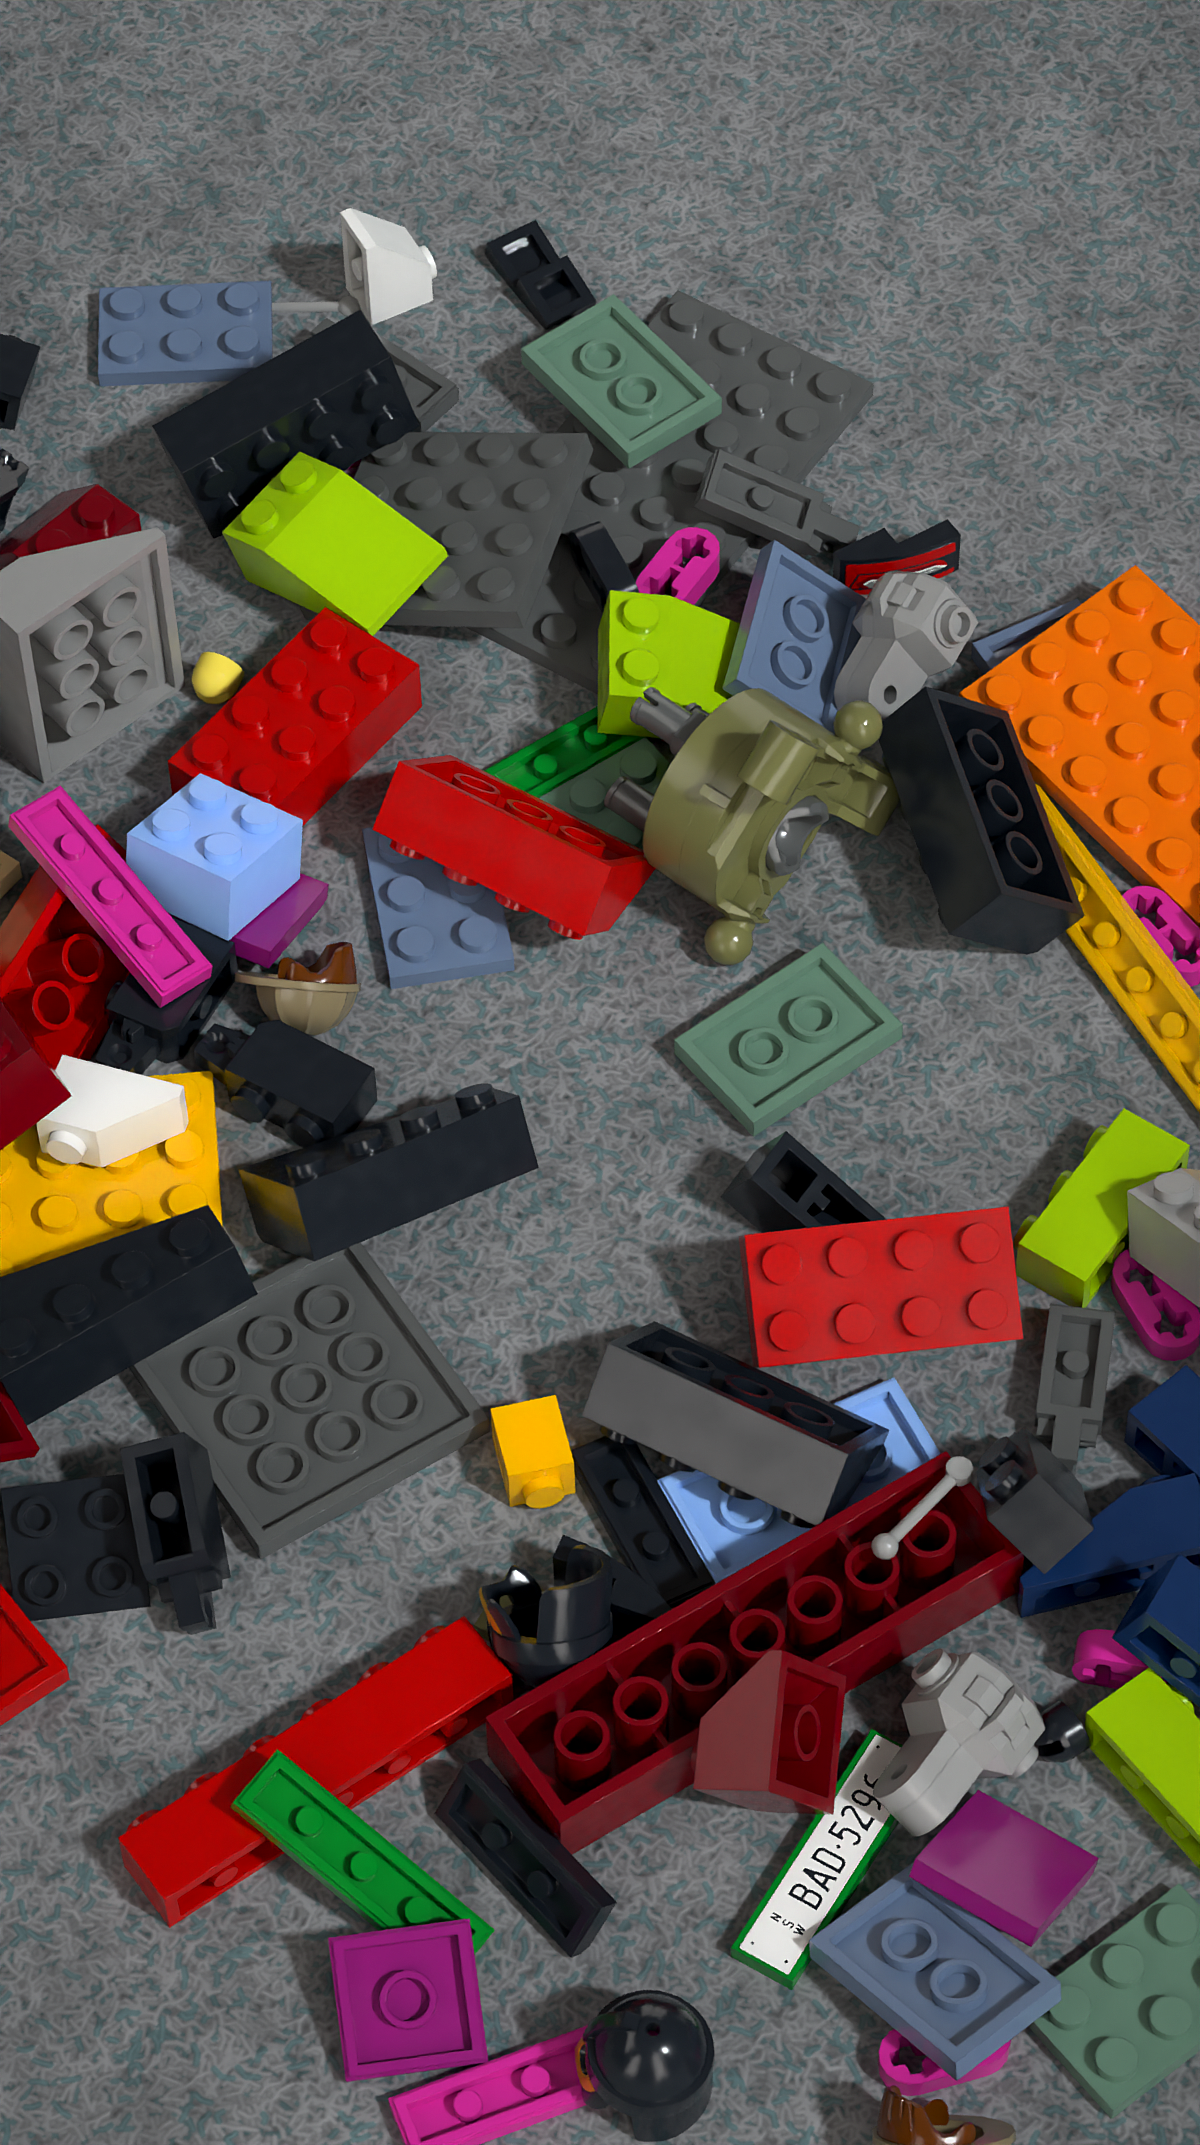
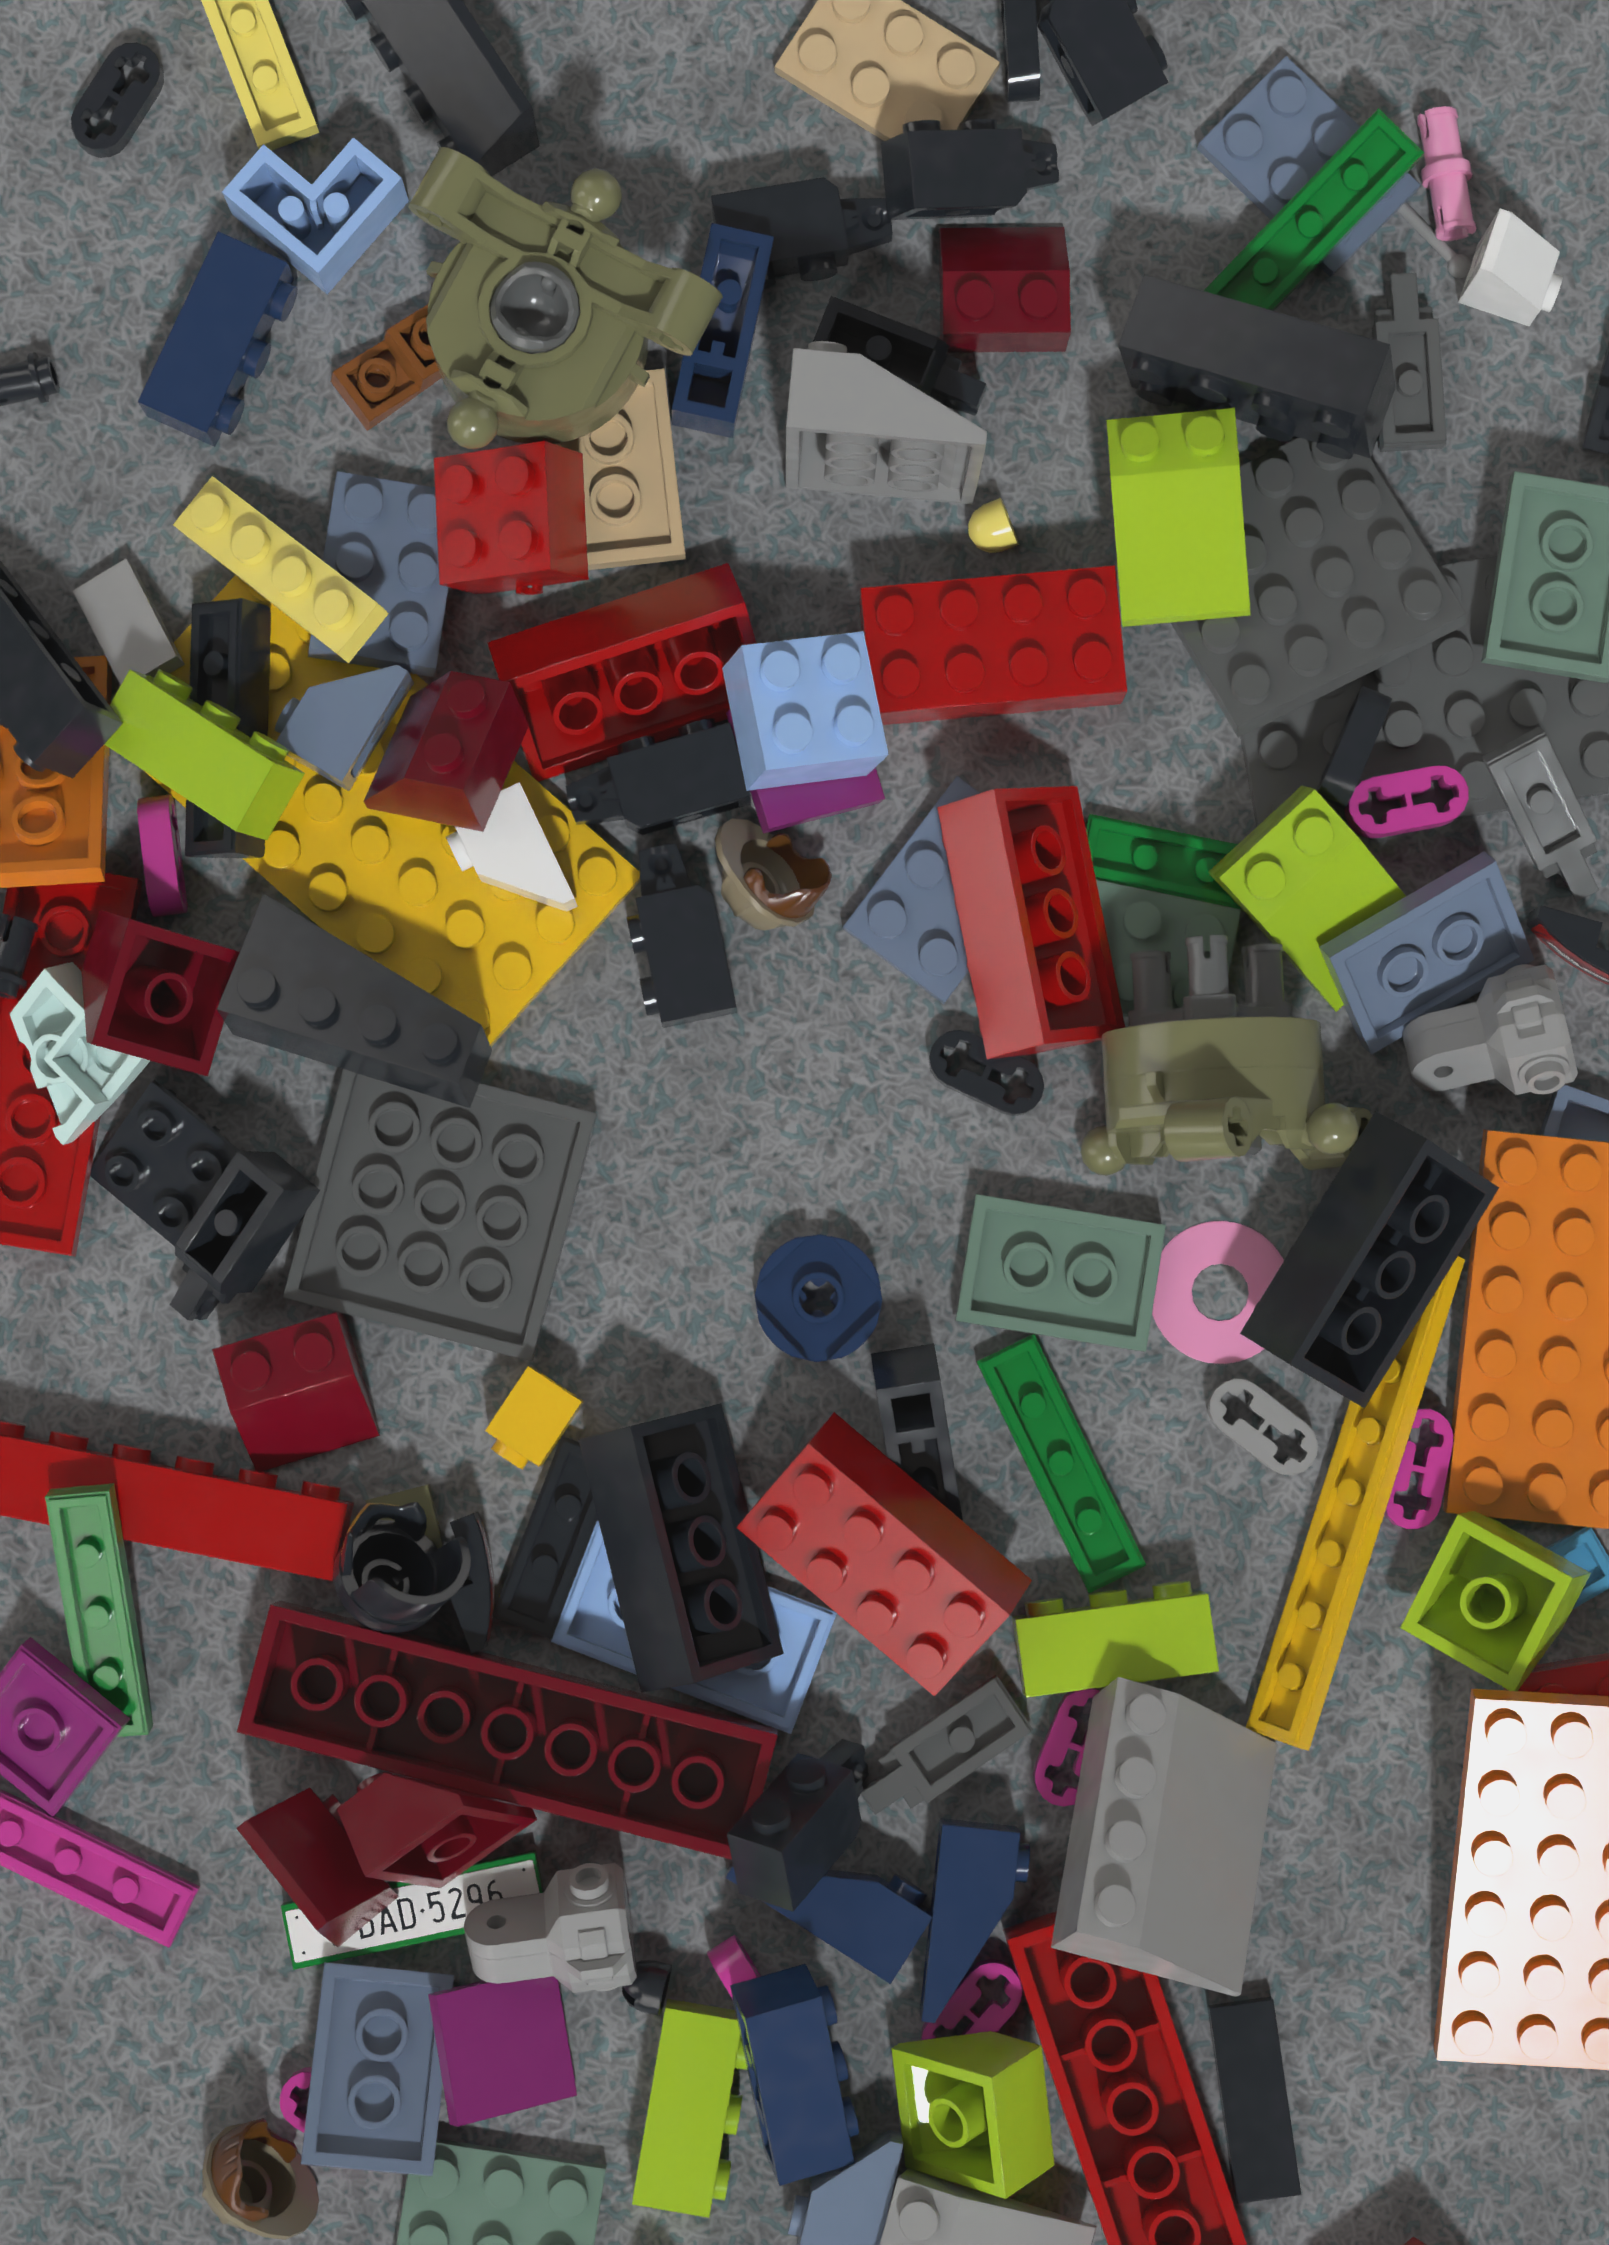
camera: 40 degrees right, 30 degrees up
(110, 896) = (689, 675): dark pink tile -> none
(225, 312) = (1319, 215): none -> green tile
(280, 262) = (1446, 173): none -> bright pink pin
(337, 1594) = (296, 1391): none -> dark red slope
(388, 1172) = (657, 1103): black wedge -> none
(525, 1857) = (217, 1706): black tile -> none
(592, 976) = (979, 1087): none -> black beam
(649, 1235) = (855, 1298): none -> dark blue plate
(651, 2078) = (139, 1913): black helmet -> none
(727, 1872) = (316, 1864): none -> dark red slope
(931, 1150) = (1061, 1463): none -> green tile
(955, 961) = (1179, 1266): none -> bright pink gear
(957, 1473) = (764, 1762): light grey hinge -> none
(1034, 1005) = (1272, 1415): none -> light grey beam

